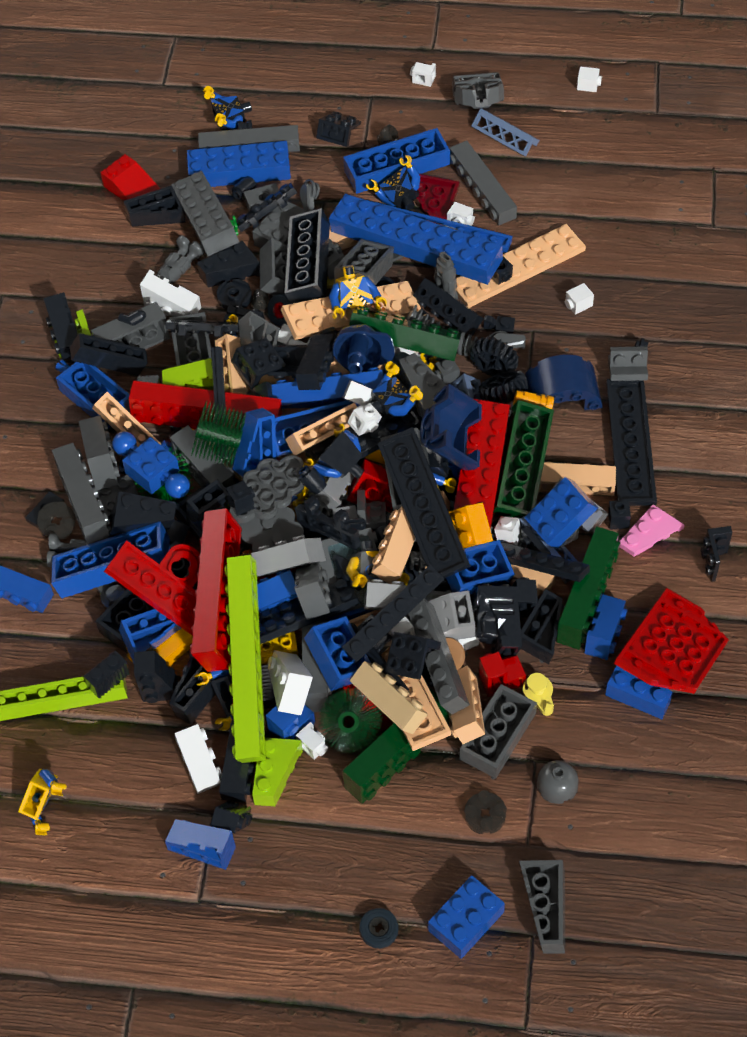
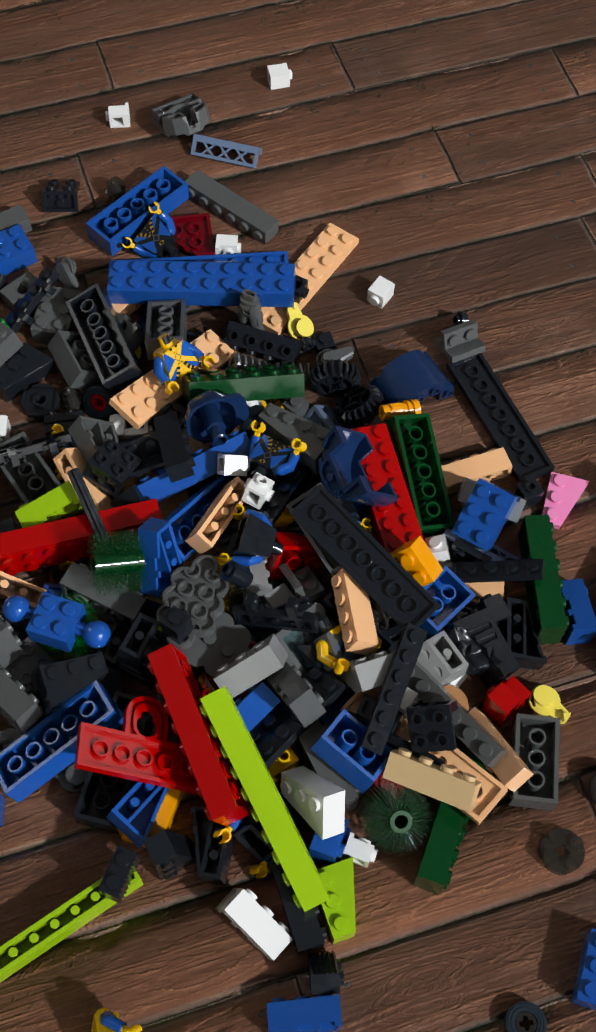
camera: 30 degrees left, 5 degrees up
(489, 302) = (298, 324): none -> light yellow piece

